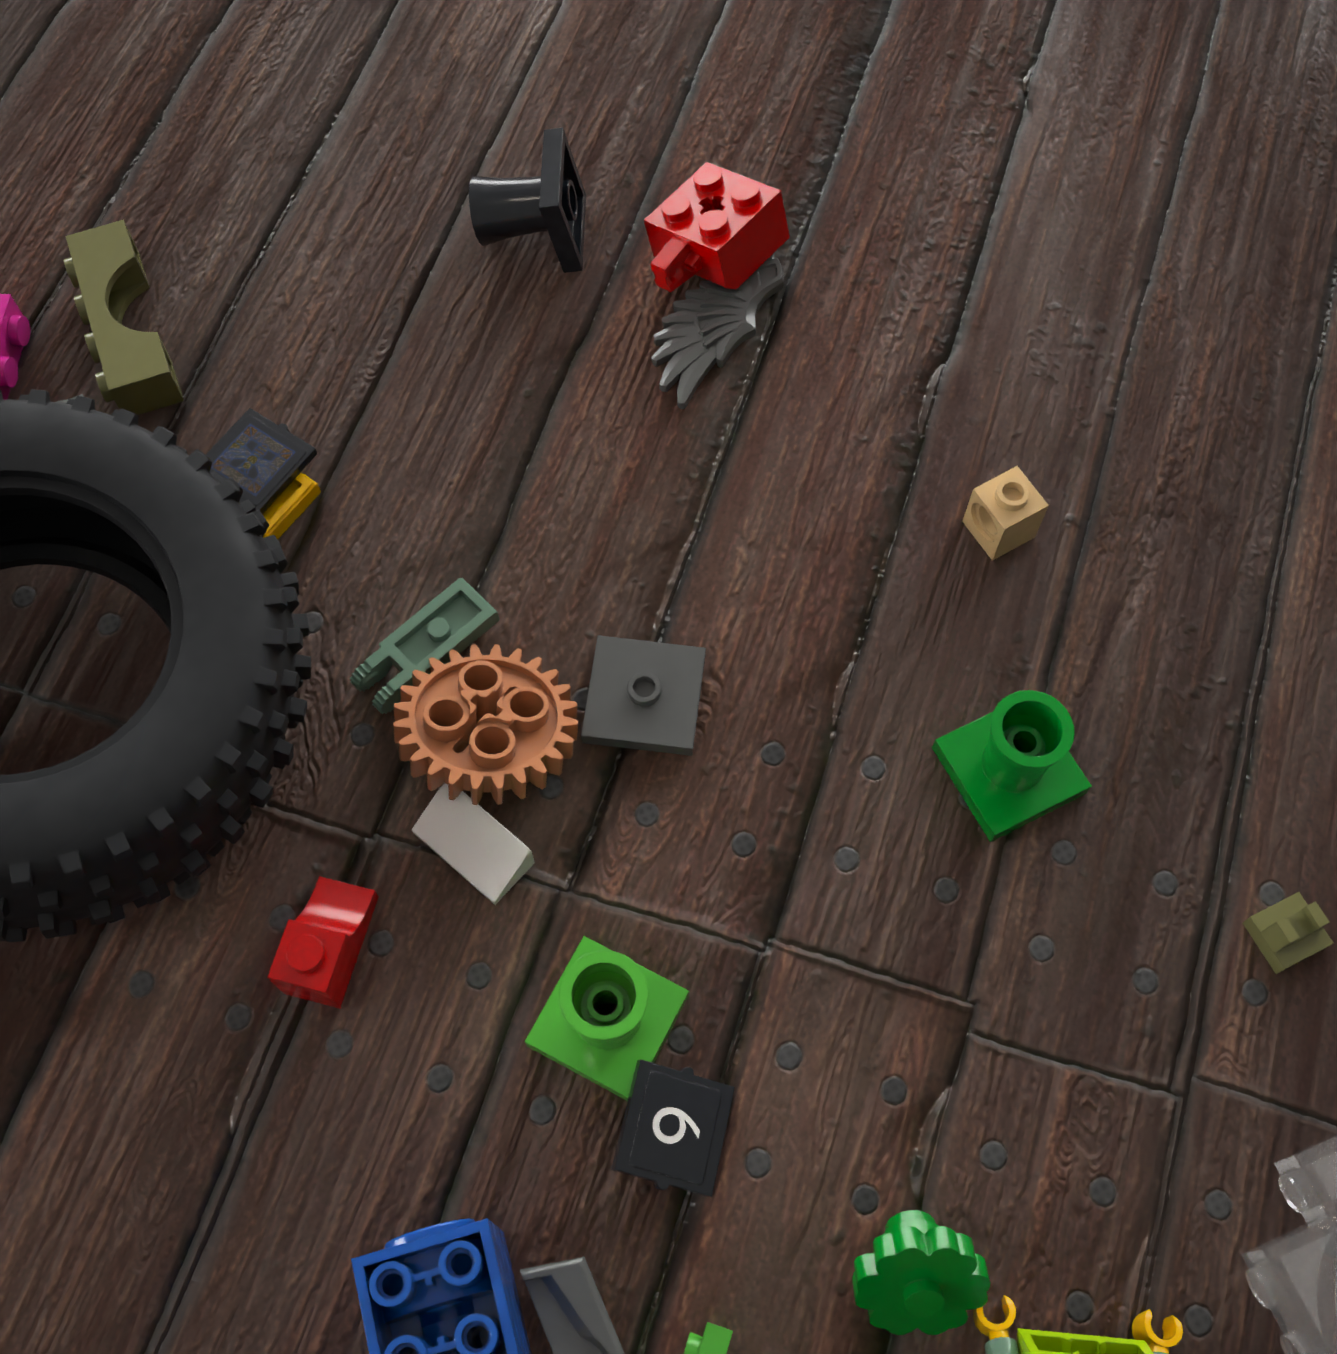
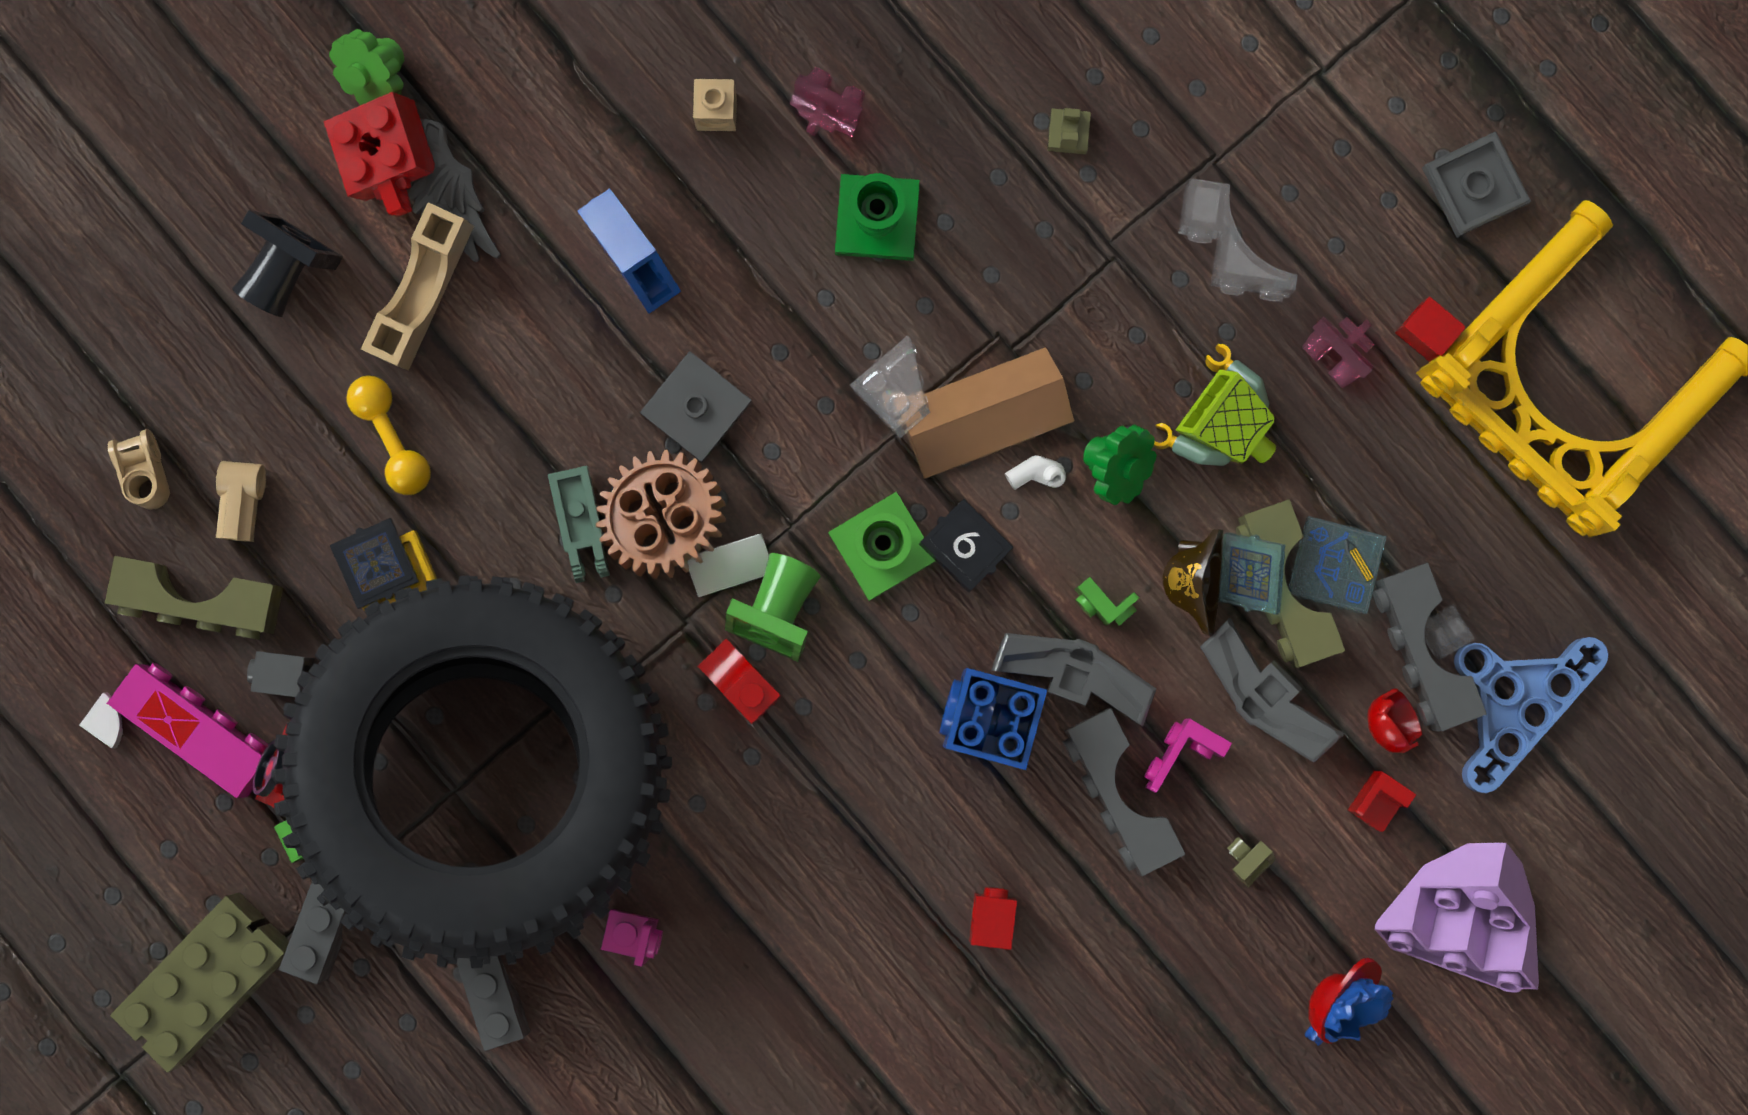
camera: 60 degrees left, 20 degrees up
(231, 208) = (137, 462): none -> tan piece
(267, 299) = (239, 490): none -> tan piece
(381, 437) = (370, 400): none -> yellow piece
(446, 921) = (775, 607): none -> bright green plant
(535, 347) = (433, 258): none -> tan arch
(774, 520) = (629, 250): none -> slope
(800, 172) = (367, 65): none -> bright green plant
(818, 908) = (895, 388): none -> clear wing
(836, 1165) = (1037, 469): none -> white arm
(865, 1048) = (990, 413): none -> medium nougat slope
(1093, 632) = (826, 107): none -> clear pink hips

